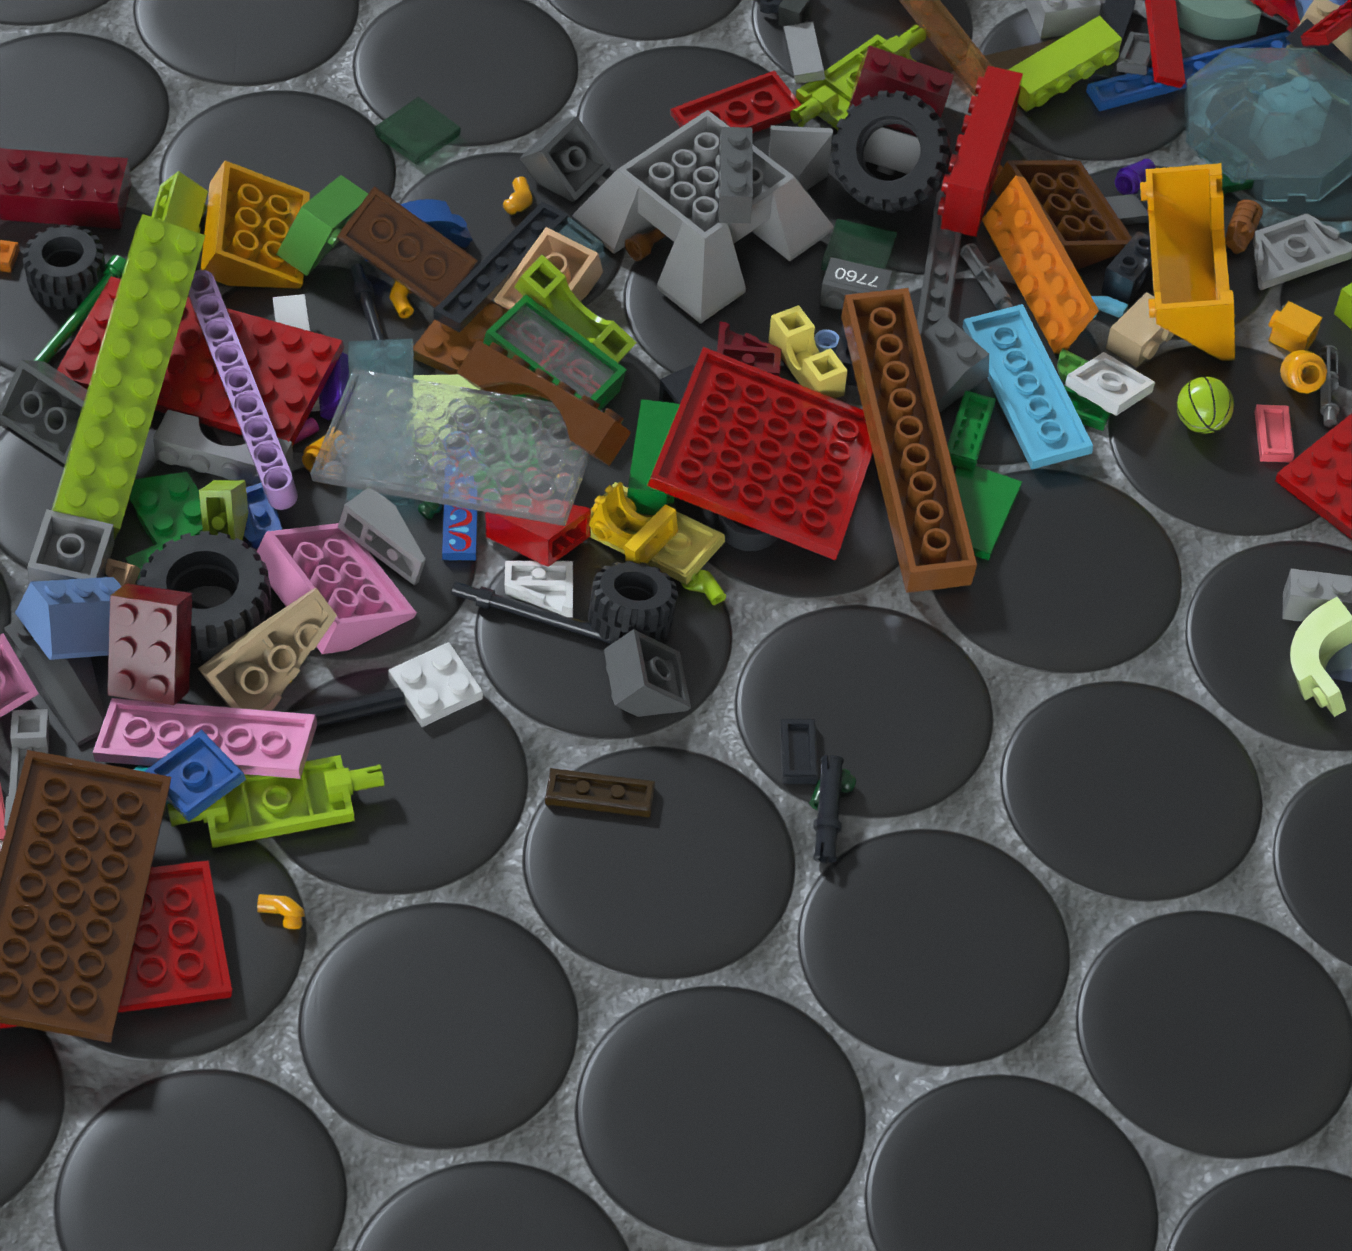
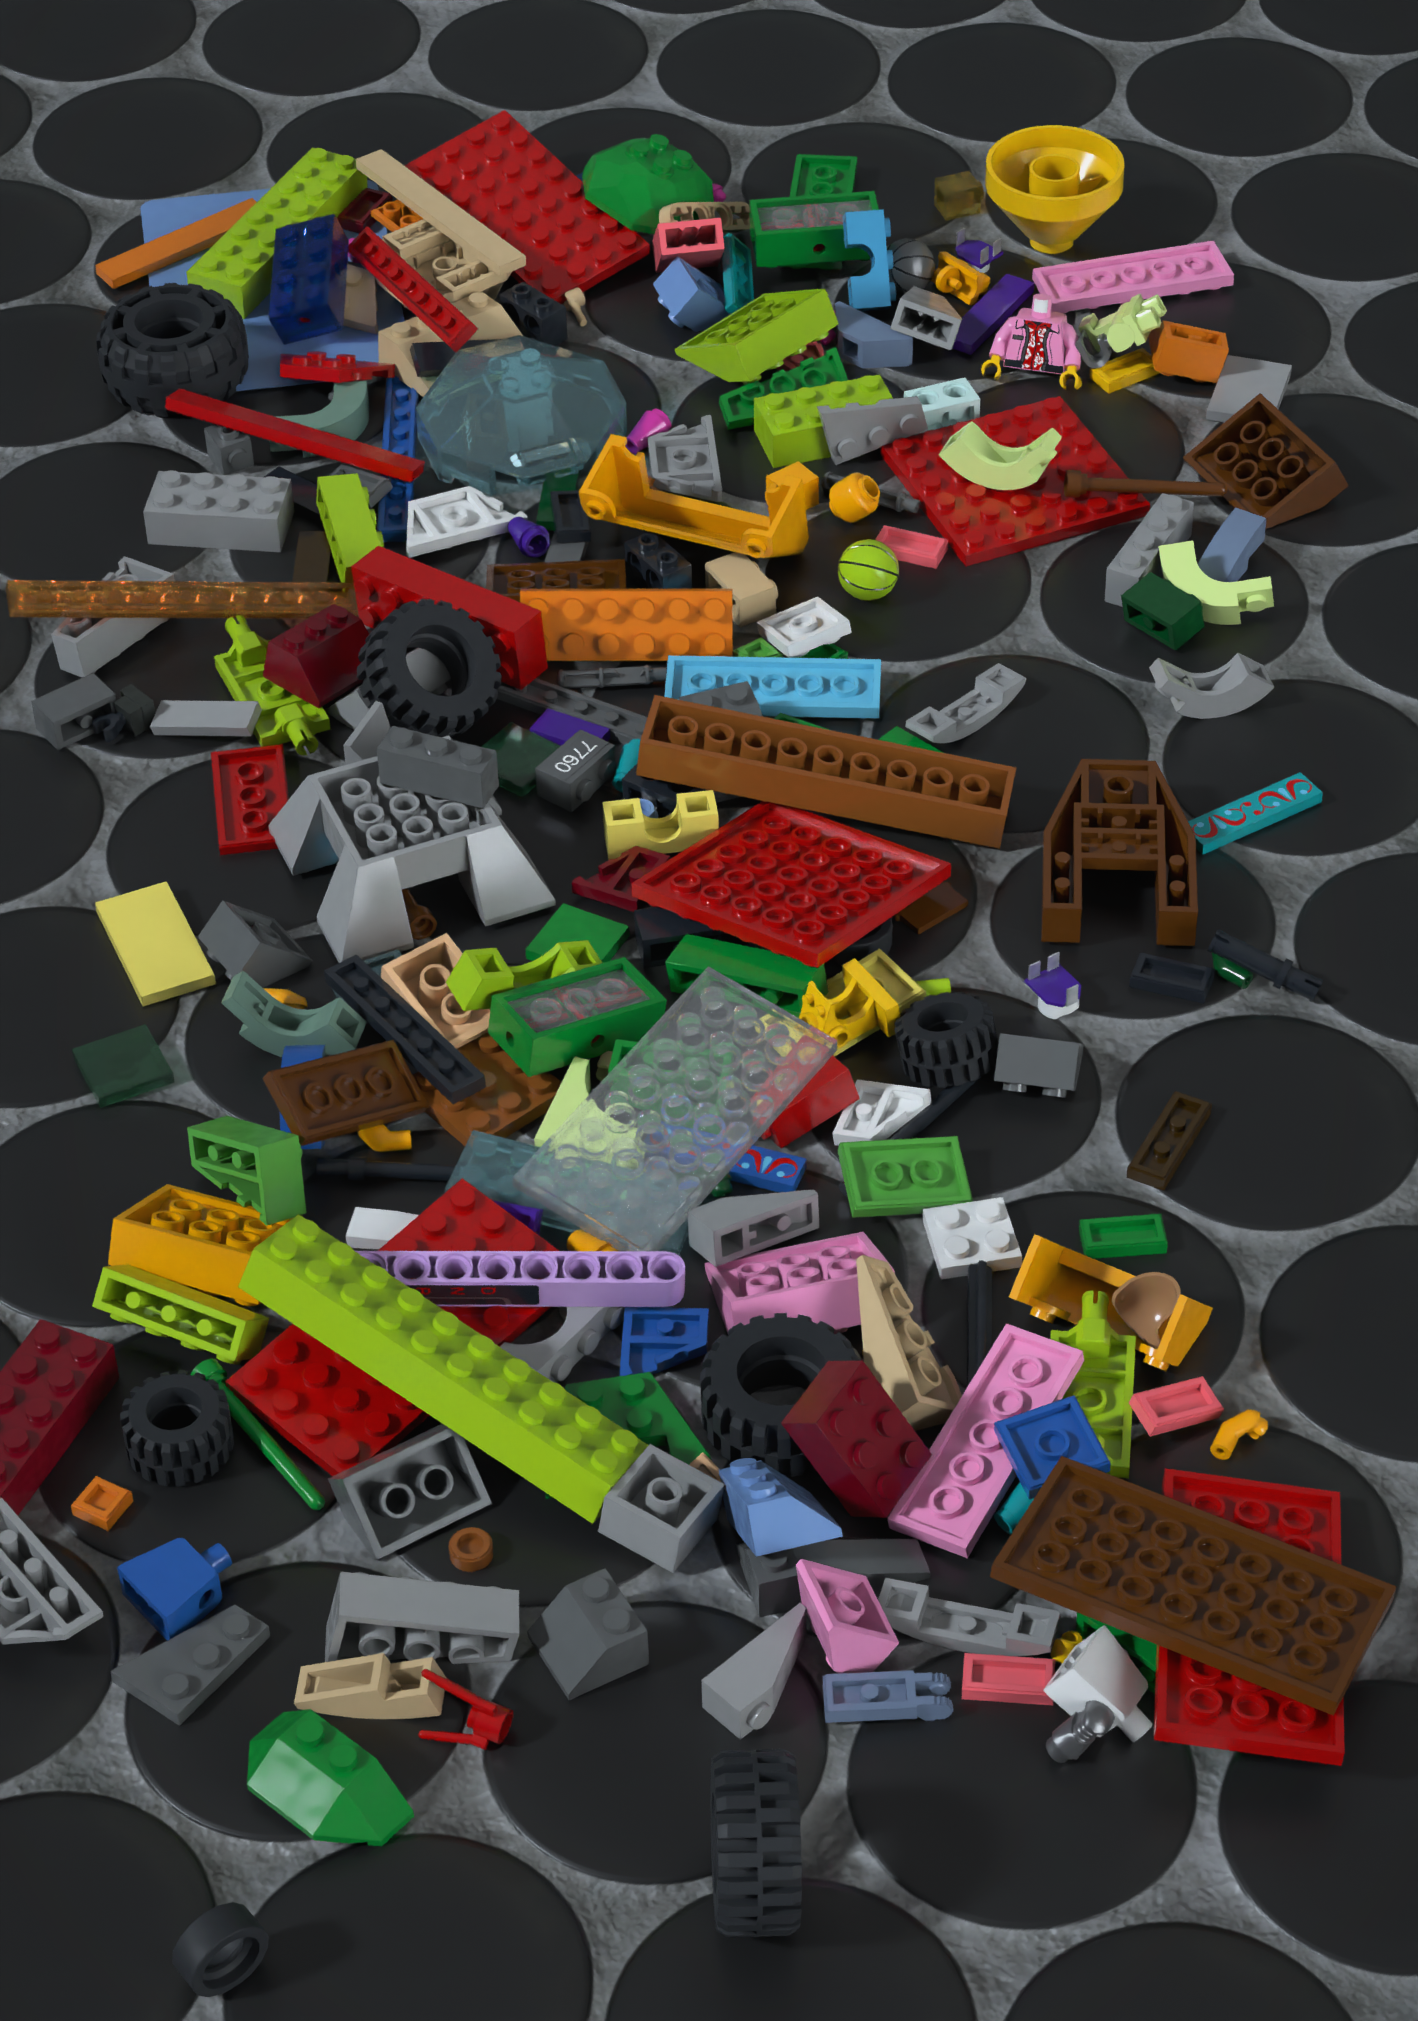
camera: 65 degrees left, 10 degrees down
(18, 465) = (471, 1549): none -> dark orange tile
(224, 507) = (666, 1347): lime slope -> none
(290, 859) = (1176, 1406): none -> coral tile
(377, 815) = (1147, 1304): none -> medium nougat helmet
(392, 816) = (1057, 1277): none -> light orange windscreen
(476, 619) = (903, 1175): none -> bright green tile
(476, 785) = (1123, 1236): none -> green tile
(483, 197) = (276, 1025): none -> sand green arch
(560, 96) = (155, 943): none -> light yellow tile
(587, 427) = (747, 968): reddish brown arch -> none
(662, 347) = (575, 924): none -> green tile
(740, 668) = (1055, 987): none -> piece
(817, 567) = (932, 908): none -> reddish brown piece
(908, 271) = (561, 727): none -> dark purple tile
(936, 655) = (1119, 820): none -> reddish brown wedge
(1039, 763) = (1254, 812): none -> teal tile
(1063, 526) = (972, 711): none -> light grey slope
(1125, 123) = (453, 520): none -> white wing
(1177, 690) = (1215, 692): none -> light grey arch
(1270, 630) = (1162, 610): none -> dark green brick
(1326, 211) = (649, 424): none -> dark pink cone

